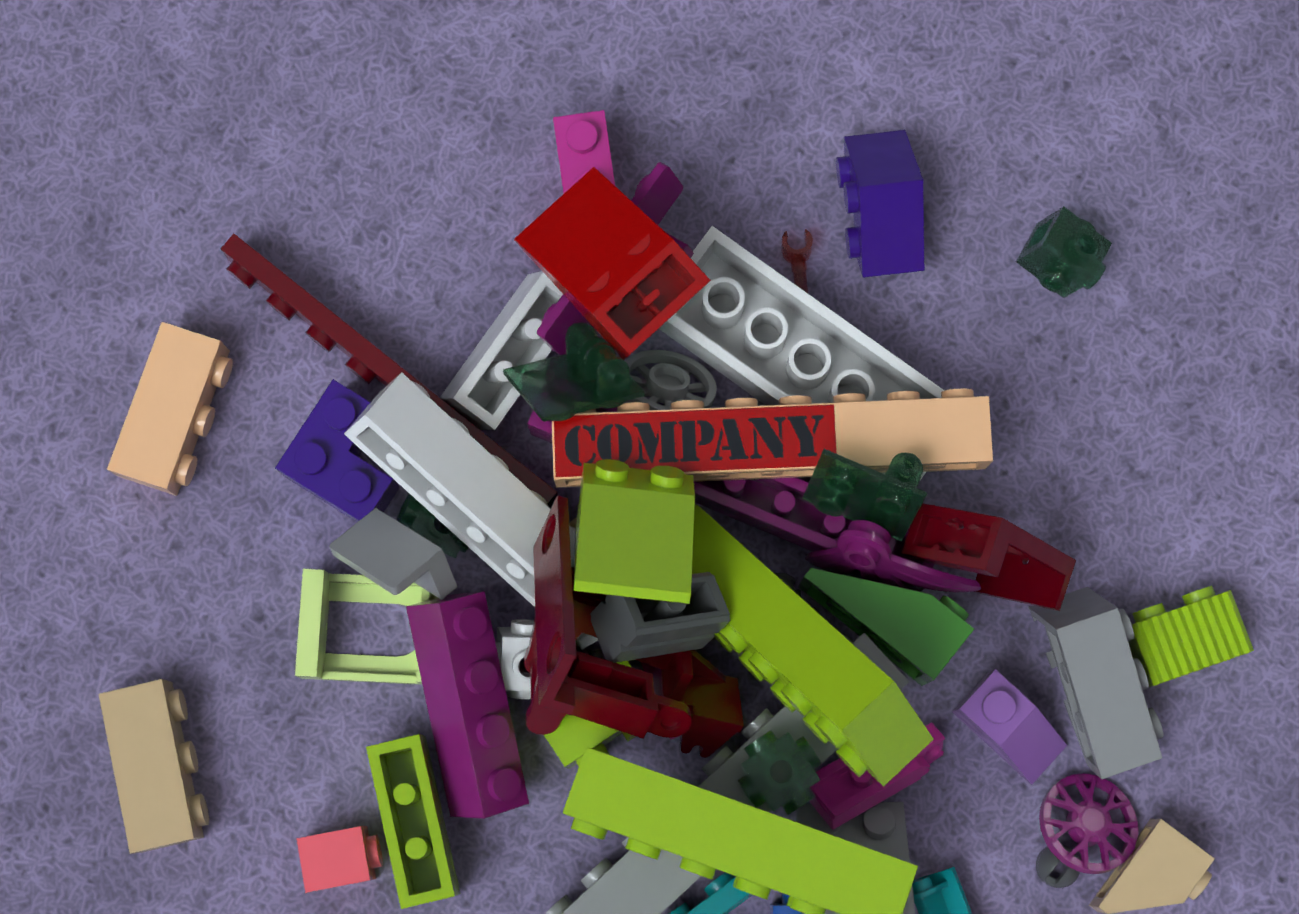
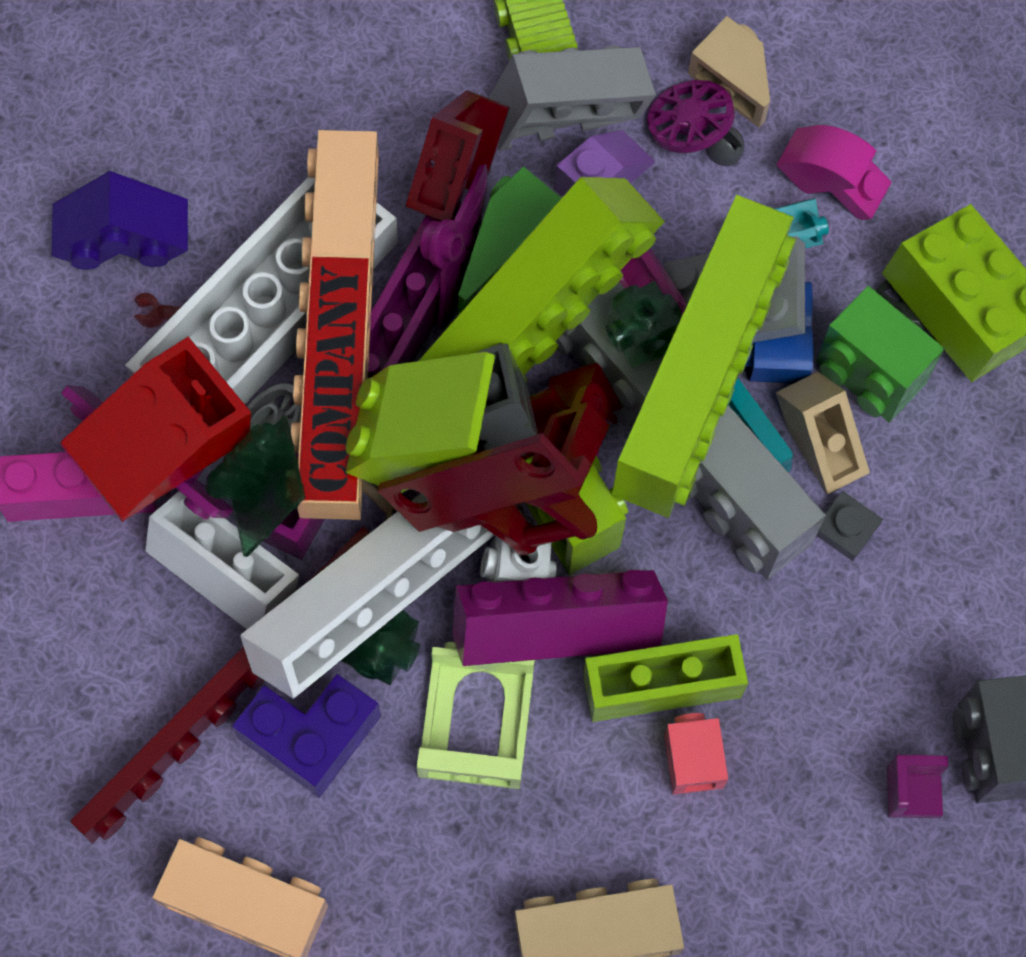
camera: 90 degrees left, 10 degrees down
(394, 556) = (414, 666): light grey panel -> none
(865, 494) = (395, 237): clear green hinge -> none
(1065, 253) = (185, 84): clear green brick -> none

